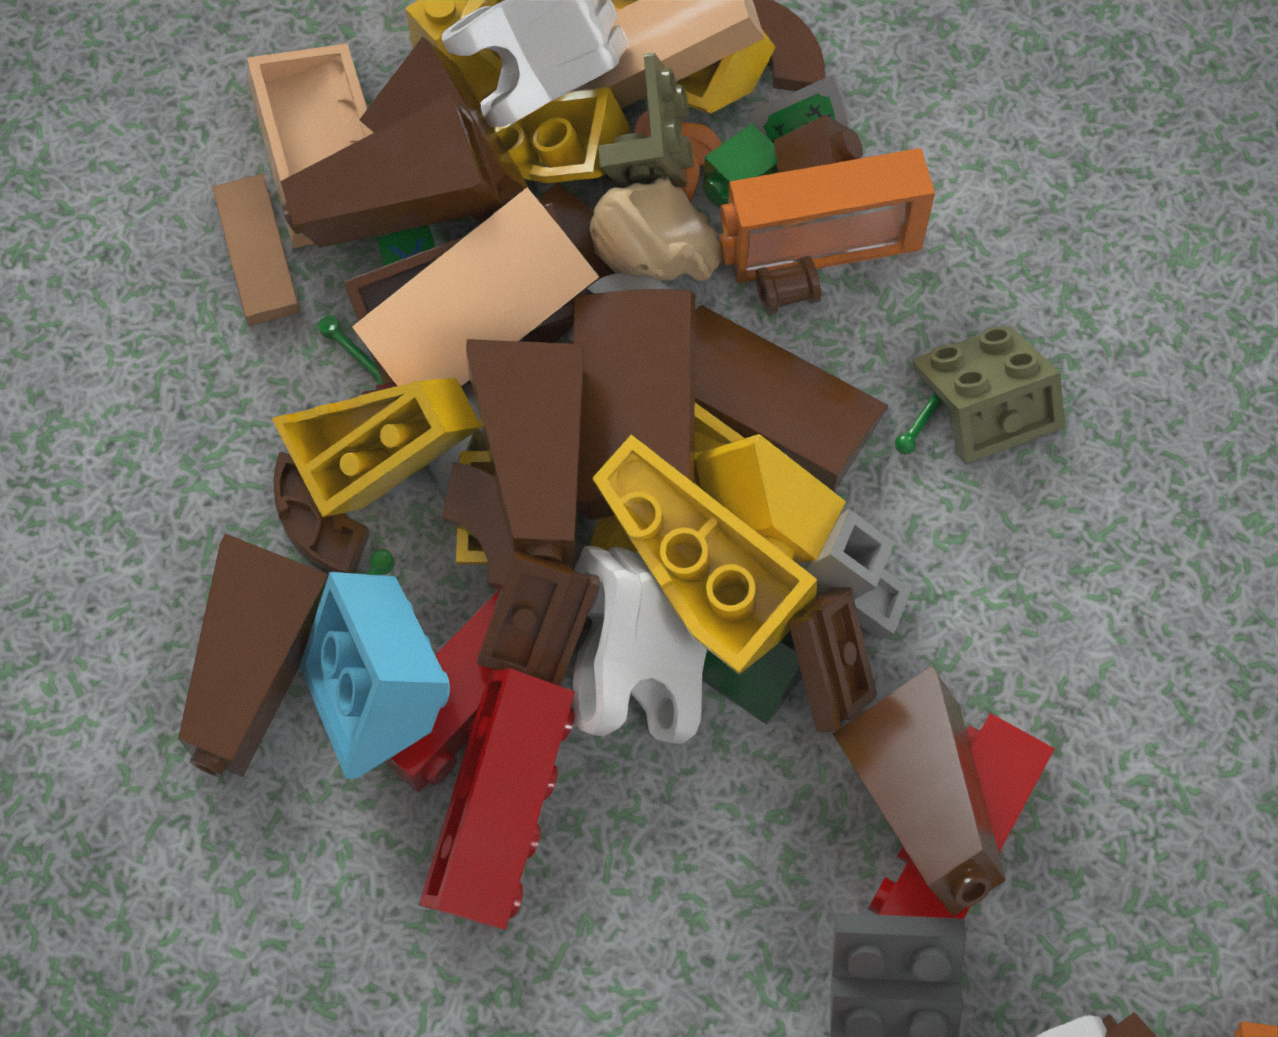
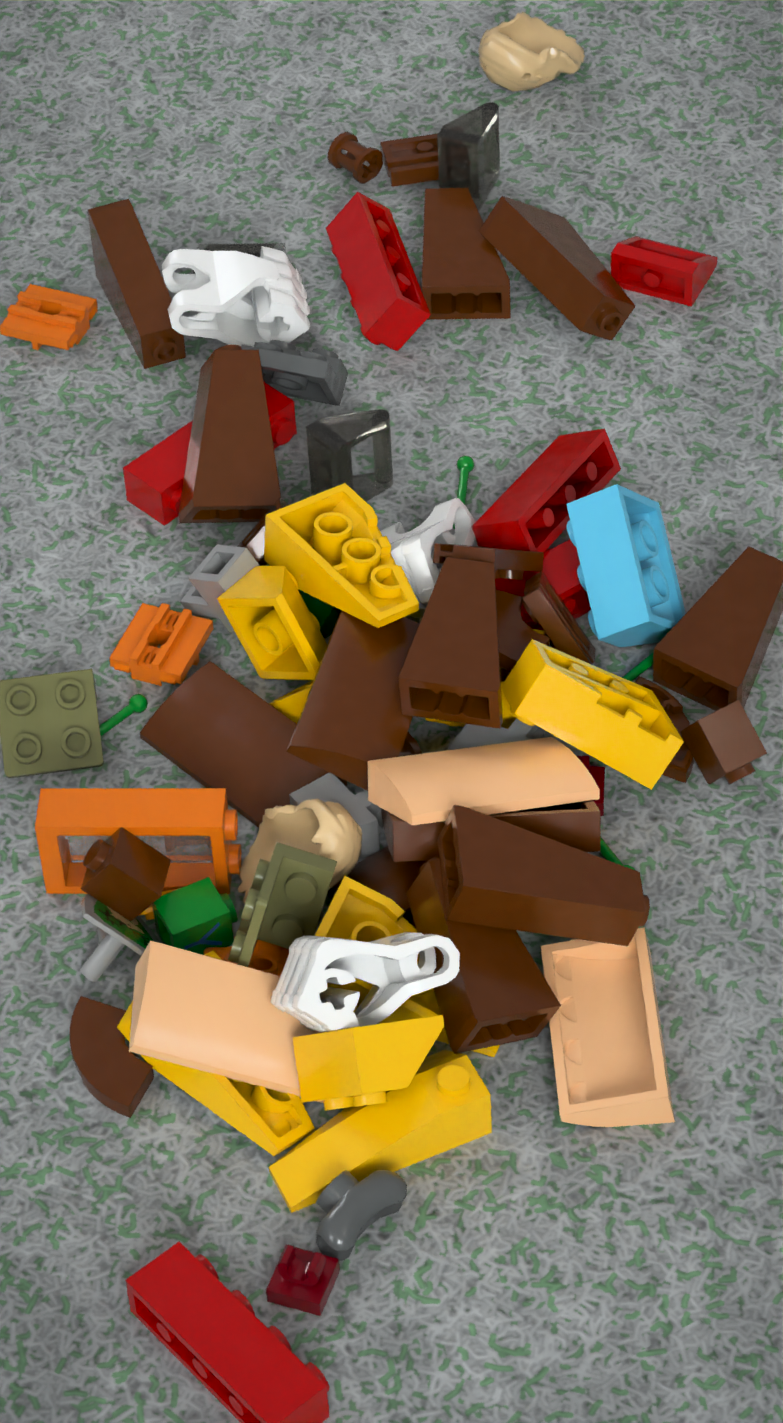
camera: 165 degrees left, 20 degrees down
(237, 471) = (724, 744): none -> reddish brown brick
(256, 250) = (686, 949): medium nougat tile -> none
(444, 577) = (549, 610): none -> reddish brown plate
(616, 806) = (465, 465): none -> green hinge
(769, 816) = (330, 452): none -> clear smoke tile
(933, 505) = (177, 632): none -> orange piece

